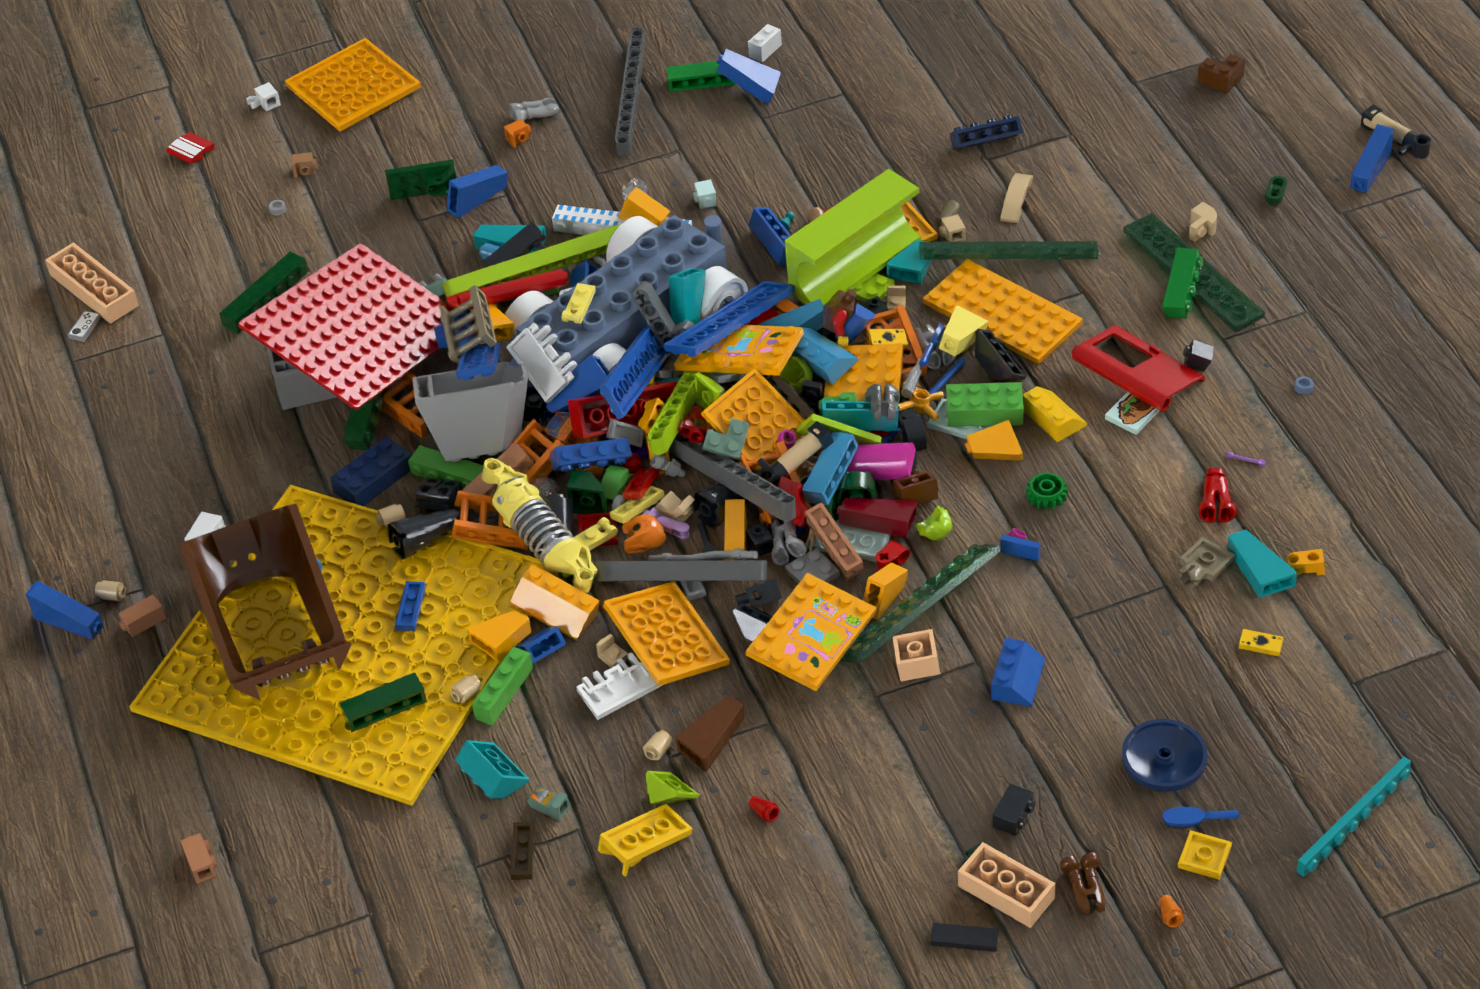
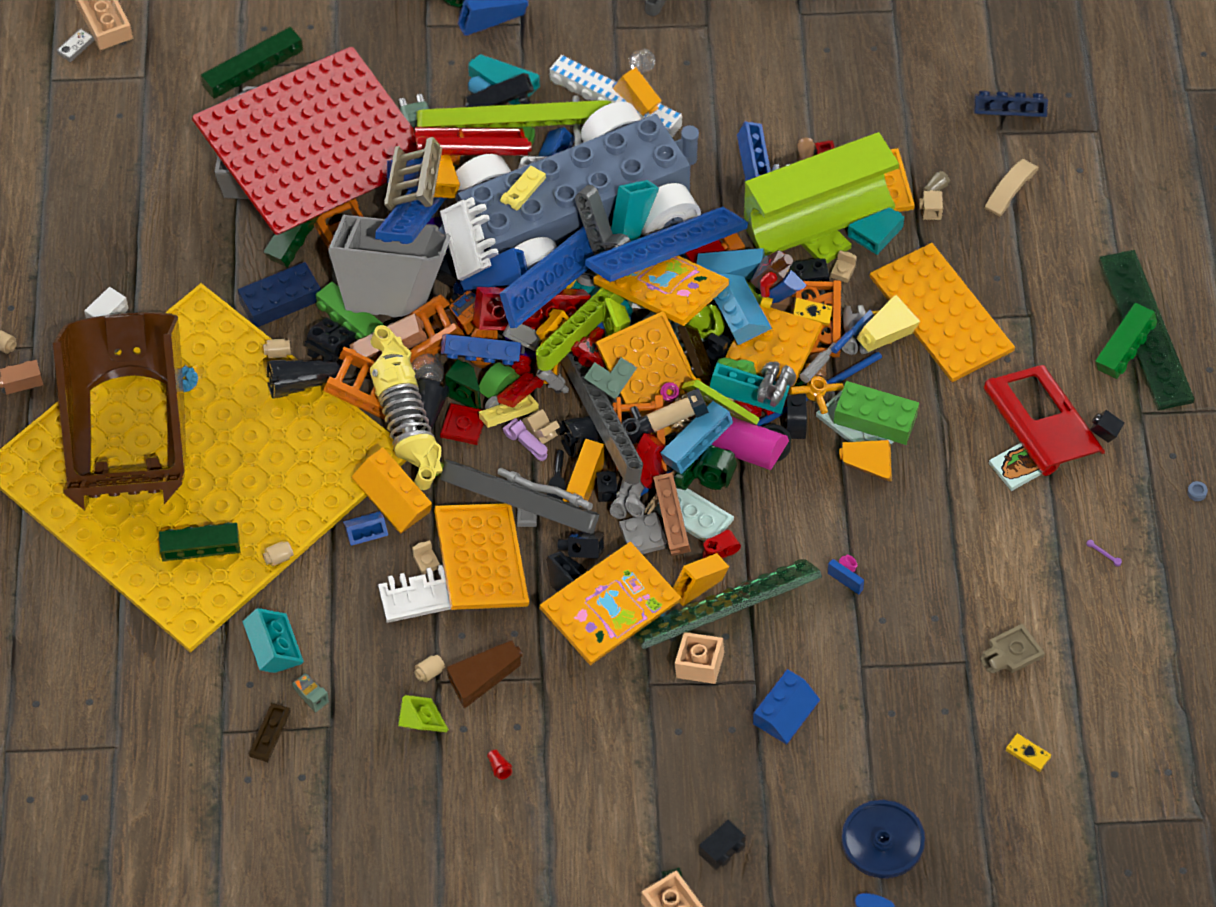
camera: 15 degrees right, 10 degrees up
(410, 606) = (261, 449): blue tile -> none
(500, 633) = (330, 507): light orange slope -> none
(502, 686) = (313, 560): bright green brick -> none
(593, 537) = (454, 432): light yellow plate -> none
(643, 836) = (380, 756): yellow plate -> none
(648, 537) = (504, 449): orange helmet -> none
(705, 194) = (708, 86): light aqua brick -> none
(786, 221) = (772, 144): teal piece -> none
(878, 515) = (727, 498): dark red slope -> none
(916, 487) = (773, 482): reddish brown brick -> none
(936, 526) = (776, 527): lime hair -> none
(997, 358) = (912, 365): black wedge -> none
(1009, 250) = (975, 247): clear green plate -> none
(1046, 490) = (906, 526): green gear -> none
(1051, 413) = (940, 441): yellow slope -> none
(1202, 221) = (1183, 276): tan brick -> none
(1216, 487) = (1059, 574): red piece -> none
(1260, 565) = (1064, 674): teal slope -> none
(1307, 561) = (1108, 684): light orange leg -> none

